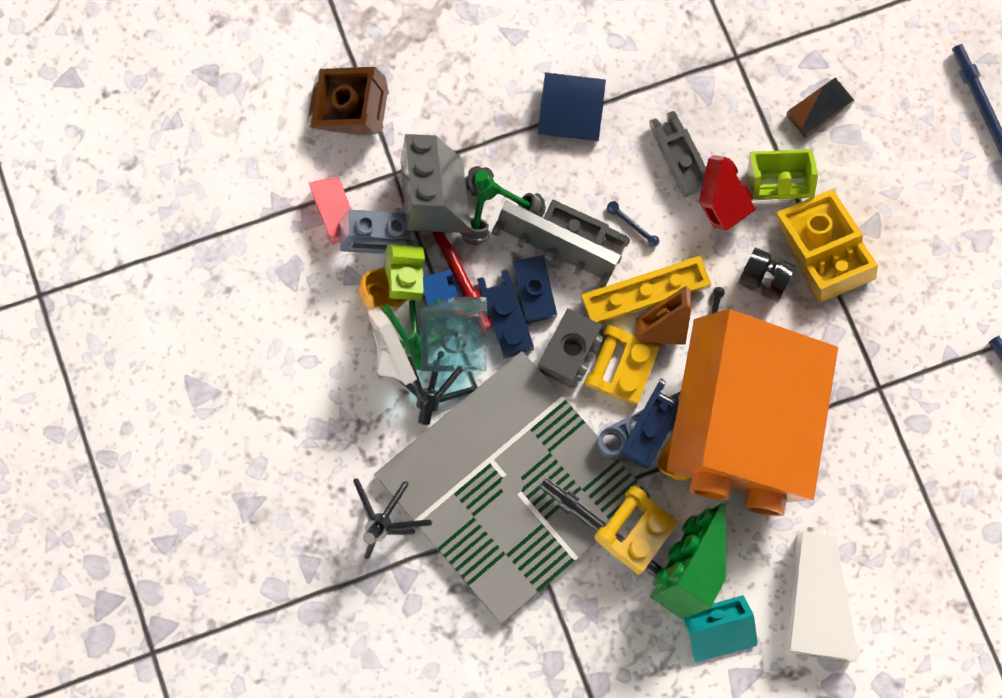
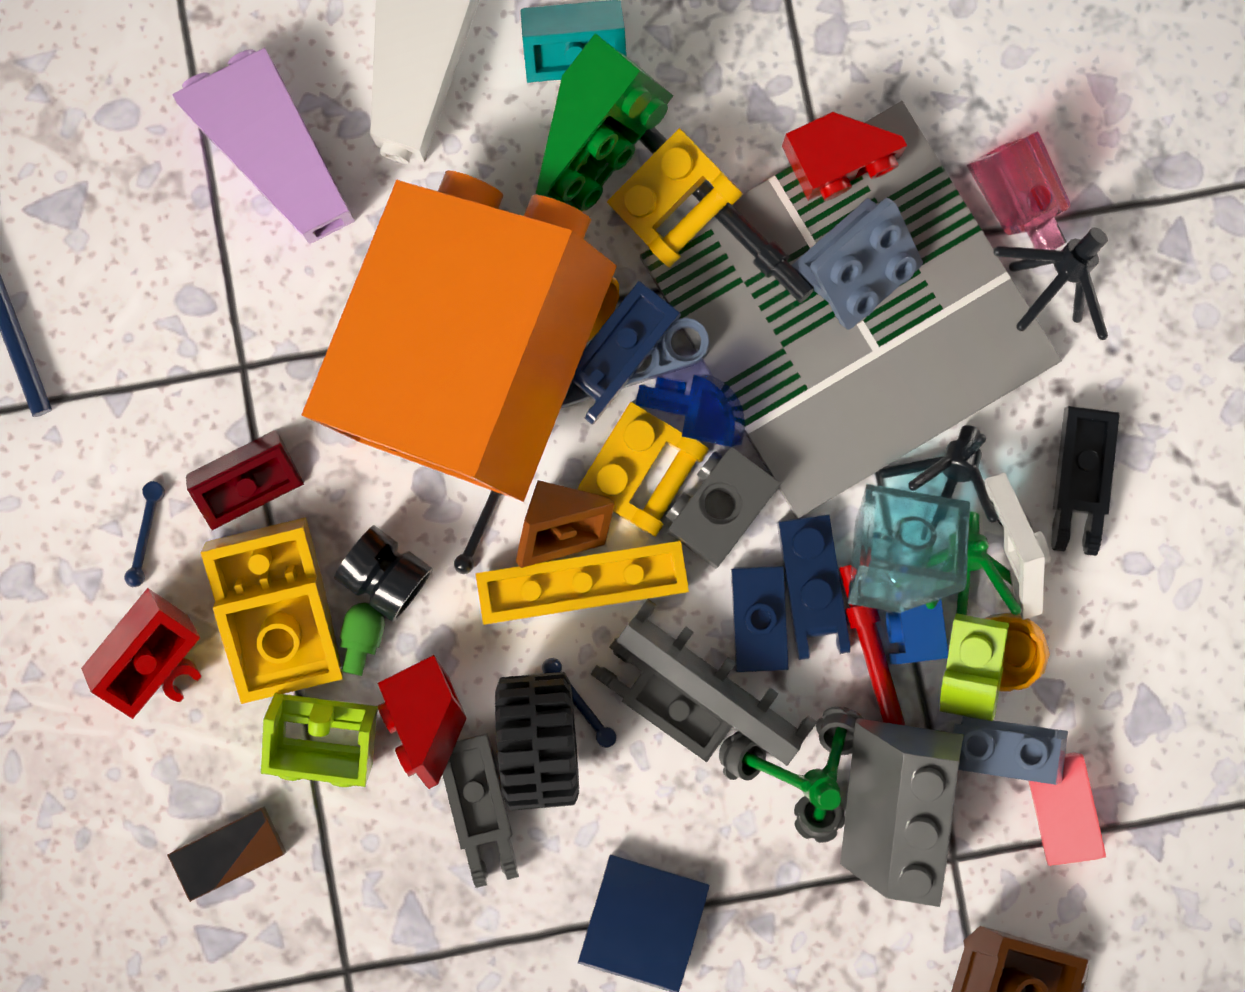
camera: 170 degrees left, 10 degrees up
(350, 407) = (1084, 475): none -> black hinge
(421, 580) = (1020, 173): none -> clear pink torso
(513, 508) = (861, 260): none -> sand blue bracket
(539, 576) = (838, 150): none -> red slope
(591, 404) = (709, 407): none -> clear blue brick
(656, 189) = (536, 741): none -> black tyre
(771, 237) = (361, 636): none -> bright green cylinder
(862, 320) = (243, 480): none -> dark red slope
(896, 204) = (143, 655): none -> red brick
(898, 525) = (264, 136): none -> lavender slope
(915, 303) = (153, 493): none -> dark blue hinge

